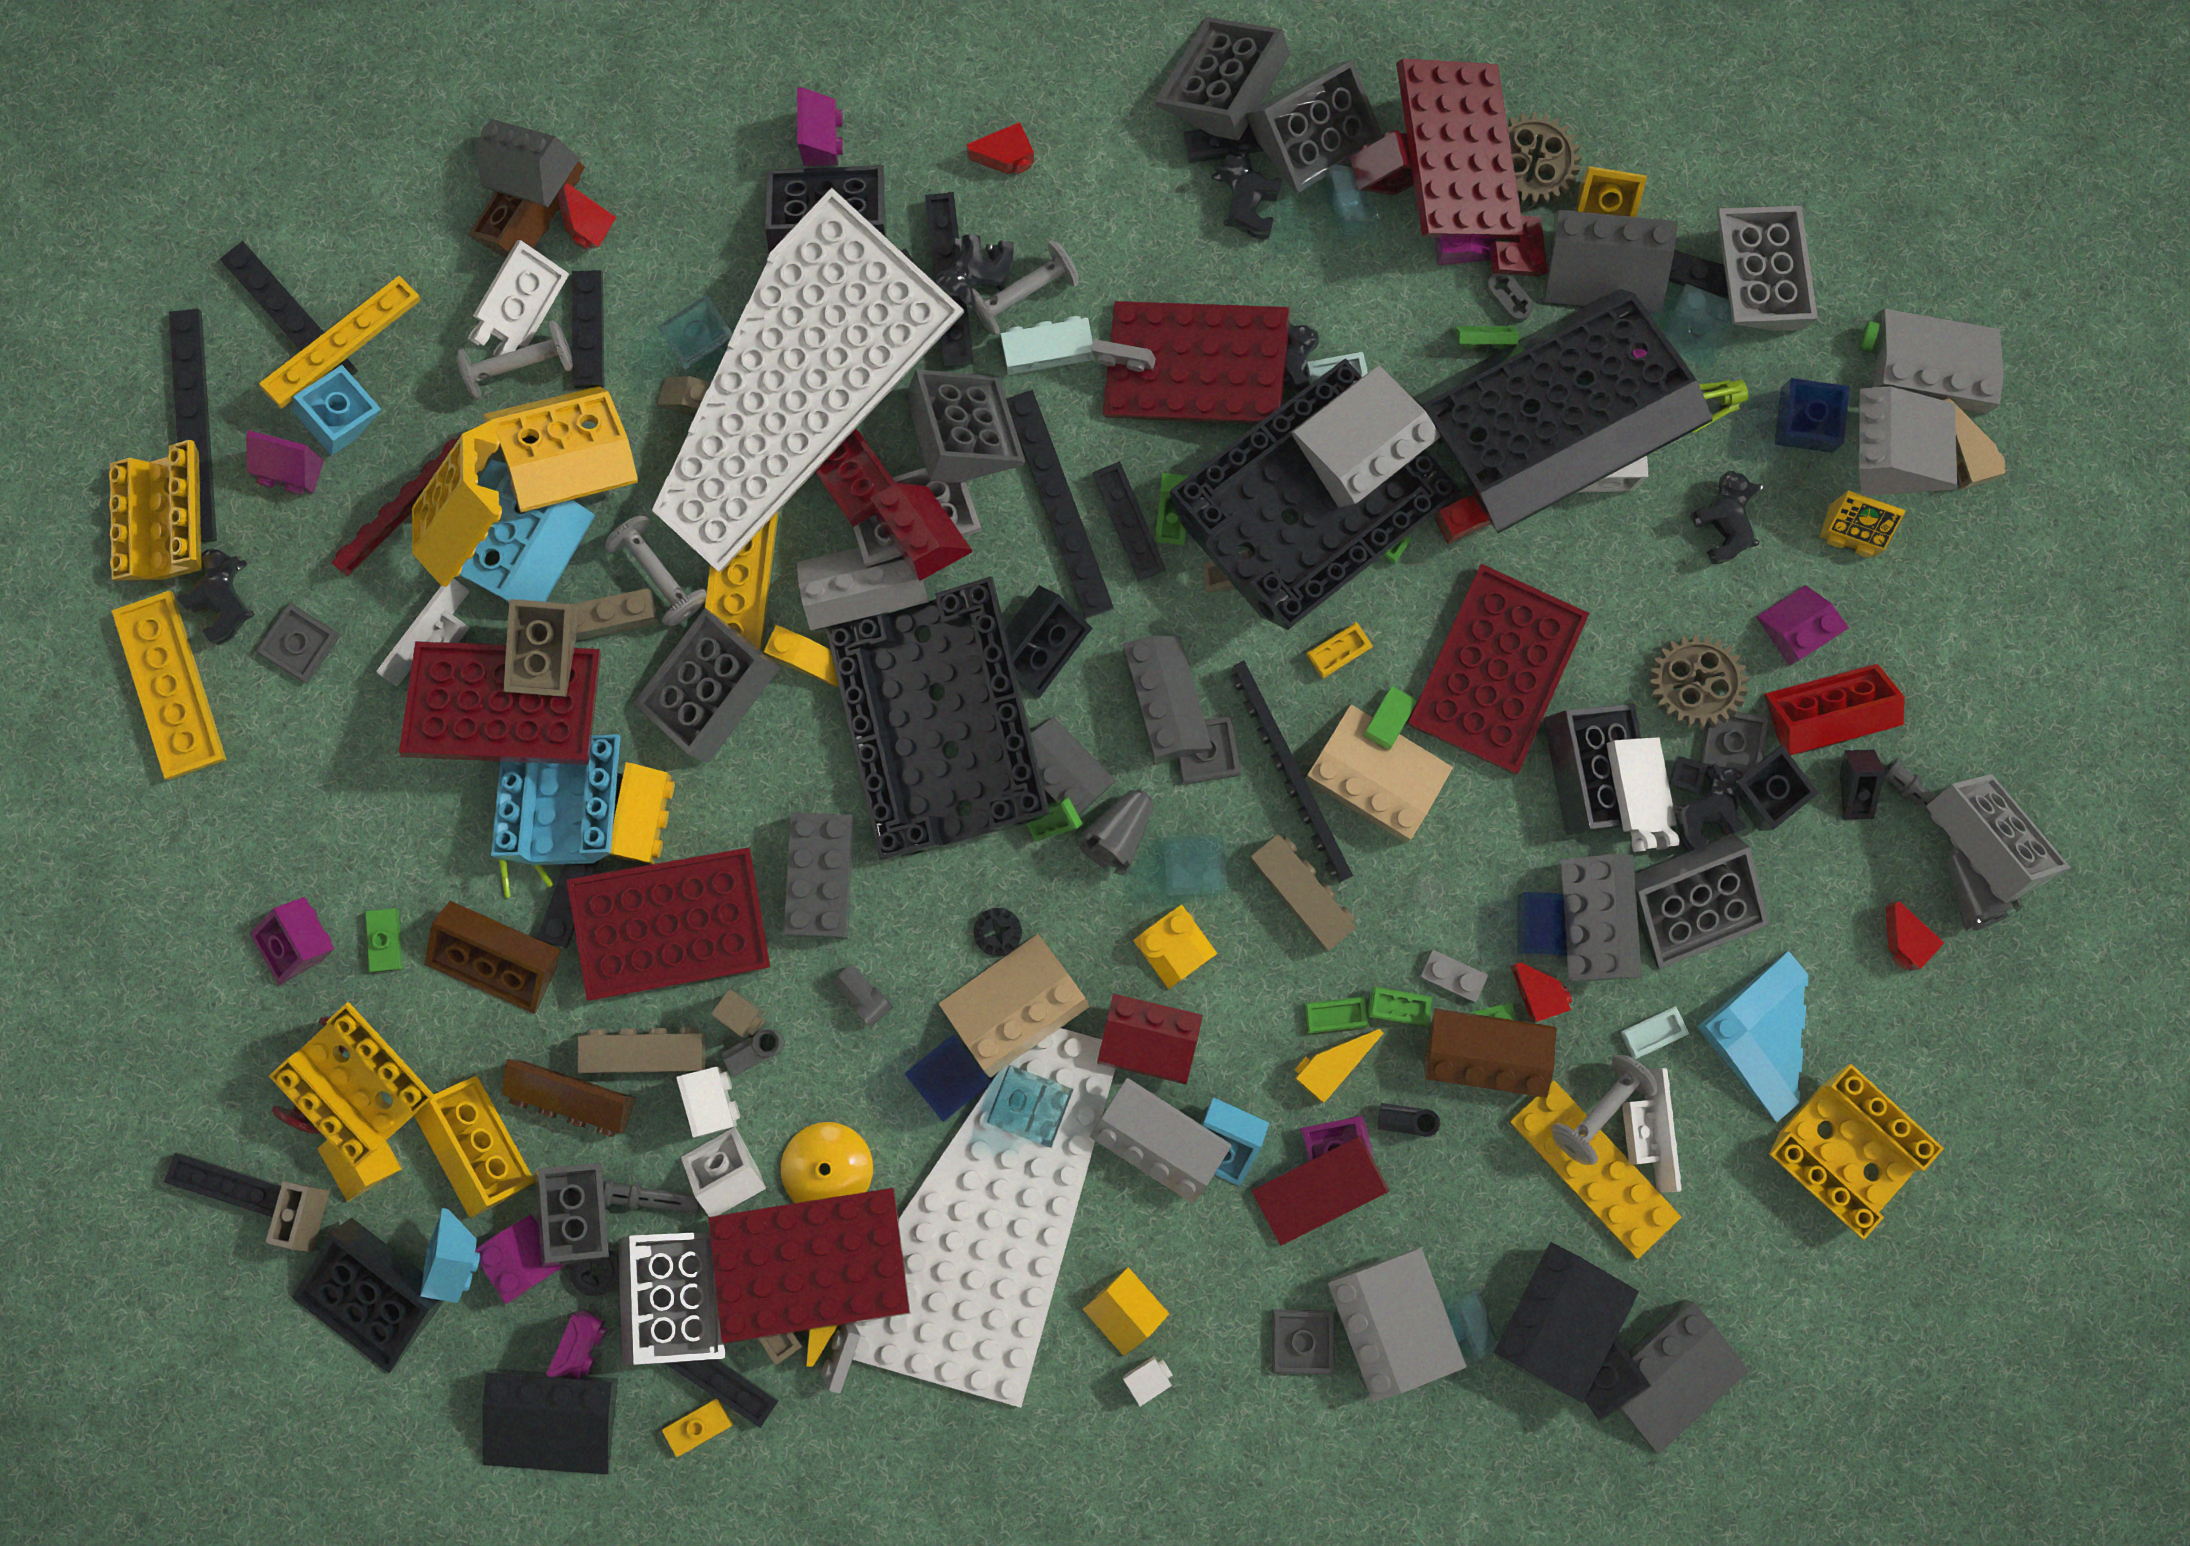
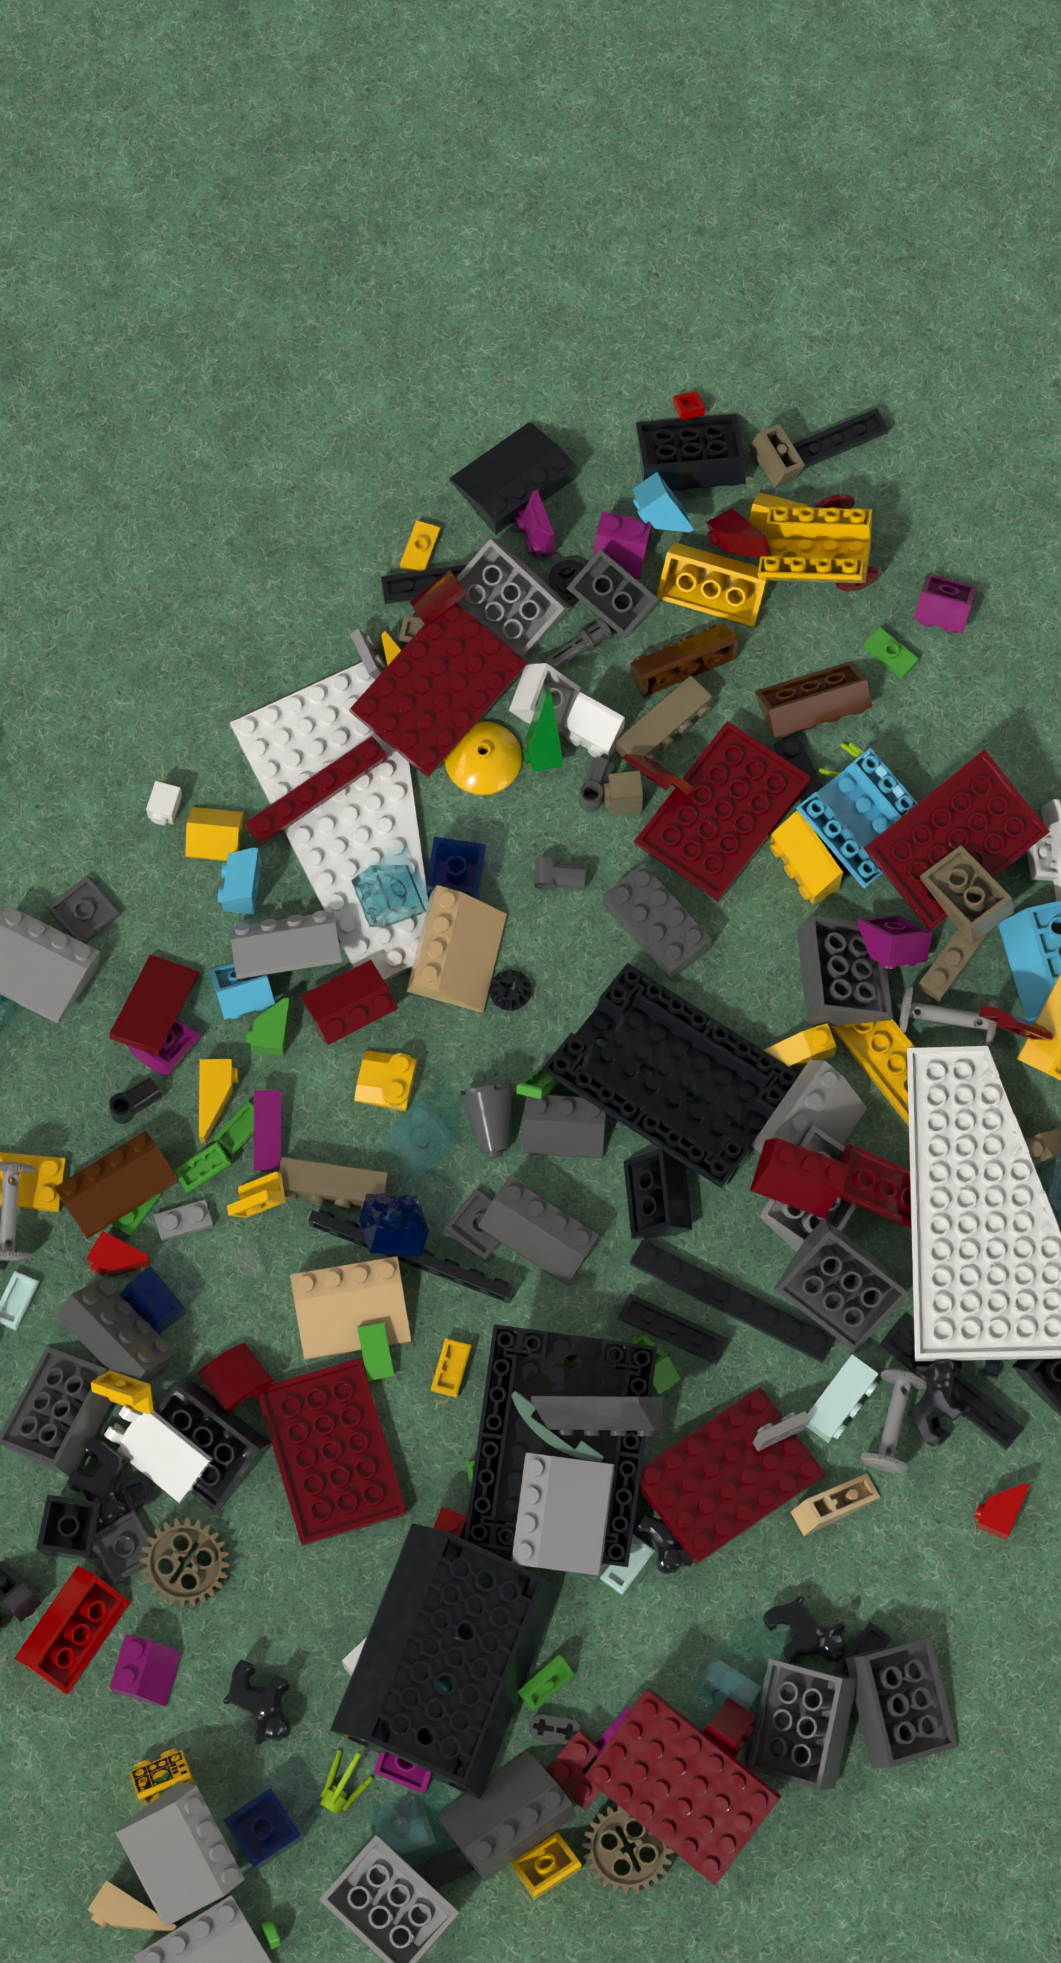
camera: 145 degrees right, 10 degrees down
(326, 1344) = (688, 405): none -> red plate
(409, 1167) = (737, 535): none -> dark red slope
(611, 497) = (1015, 1024): none -> dark red slope
(636, 674) = (895, 941): none -> magenta slope
(694, 1004) = (657, 773): none -> dark red slope
(731, 1352) = (438, 597): none -> dark red slope
(760, 1132) = (542, 738): none -> green slope
(1004, 1266) = (316, 790): none -> dark red plate
(1131, 270) = (834, 1504): none -> tan slope
(1146, 1239) = (241, 881): none -> medium azure slope
(1236, 1078) = (270, 1029): none -> bright green slope
(1266, 476) = (600, 1413): none -> dark grey slope
(1287, 803) = (393, 1224): none -> clear blue brick
(1306, 472) = (582, 1451): none -> sand green slope
(1317, 990) = (266, 1130): none -> magenta tile
(1376, 935) = (258, 1196): none -> yellow panel
(1527, 797) = (235, 1377): none -> dark red slope
(1642, 857) = (124, 1391): none -> yellow panel

